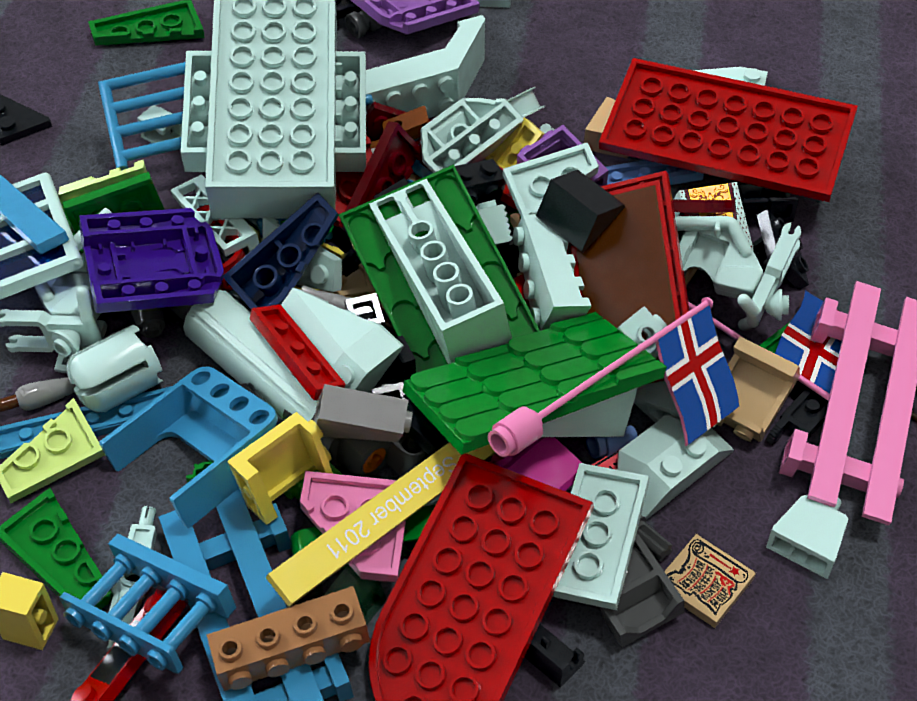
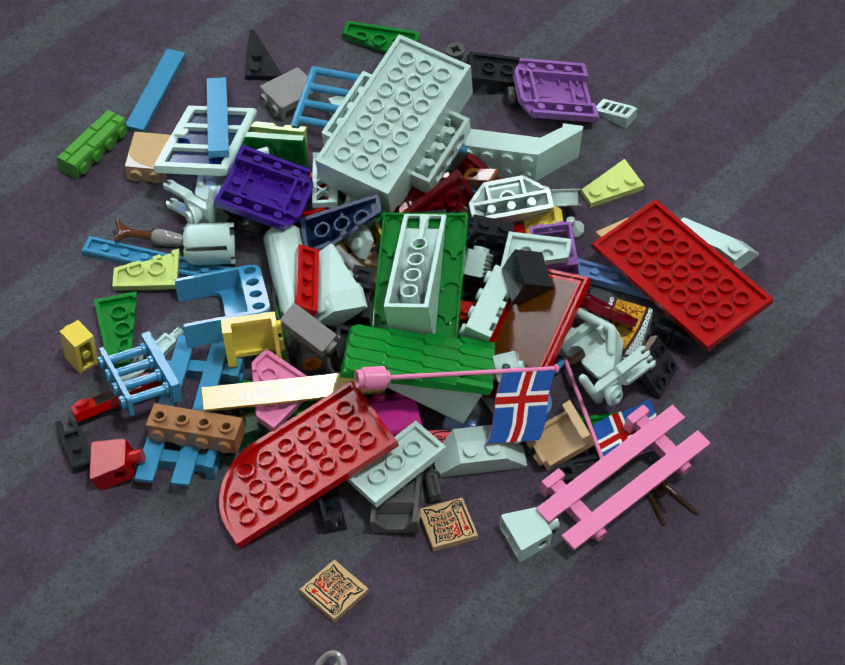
camera: 30 degrees right, 0 degrees up
(73, 136) = (284, 92): none -> light grey panel
(551, 71) = (613, 184): none -> yellowish green wing

